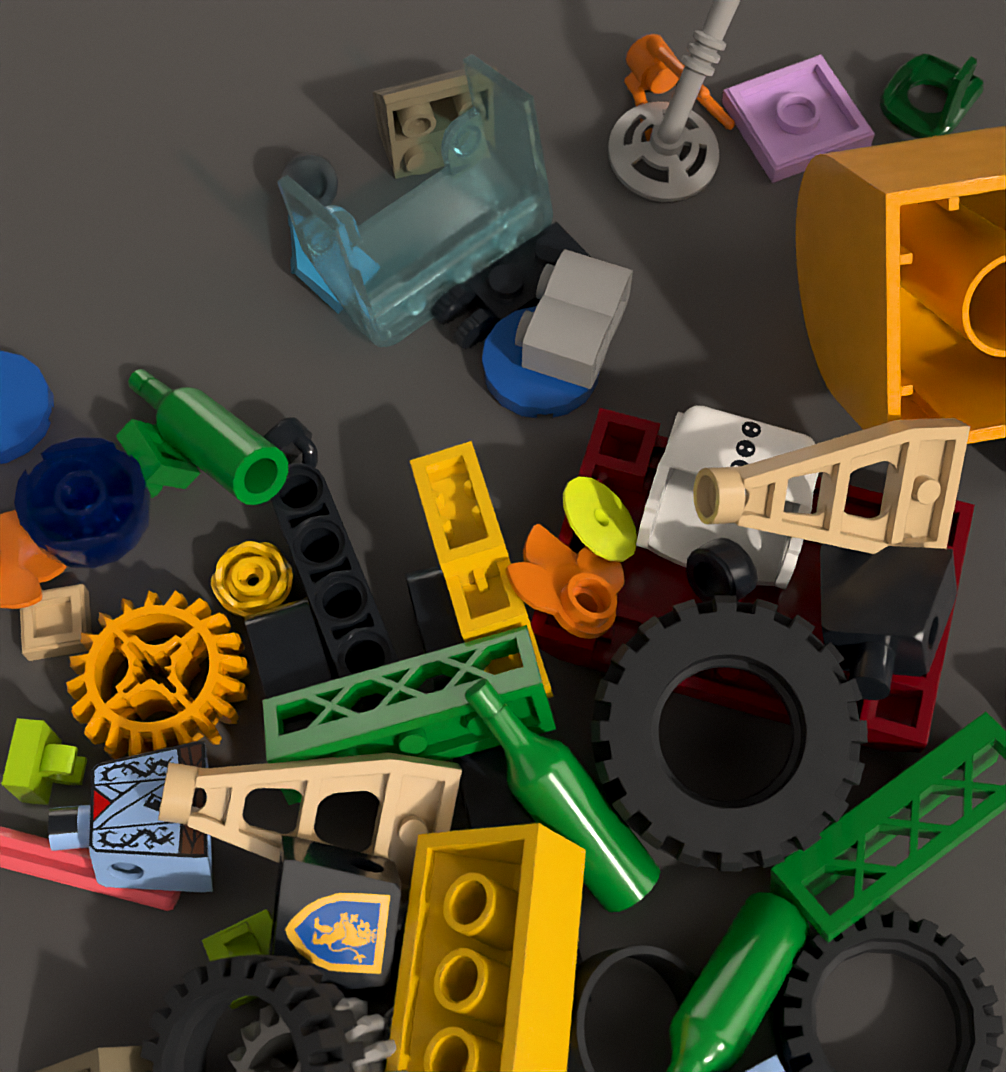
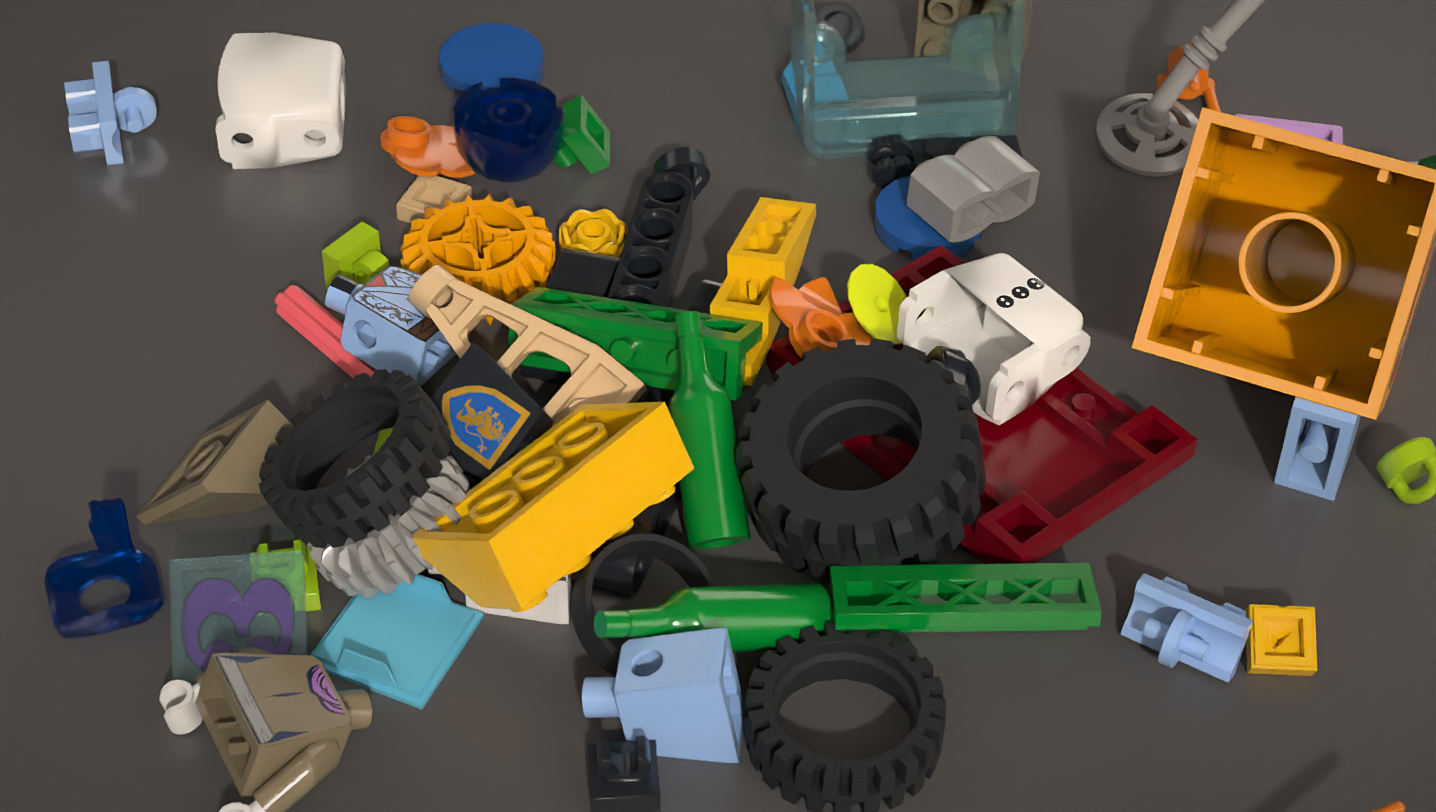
camera: 30 degrees right, 20 degrees down
(214, 439) = (632, 135): green piece -> none
(885, 611) = (1055, 451): black torso -> none
(916, 500) = (1140, 373): tan plate -> none

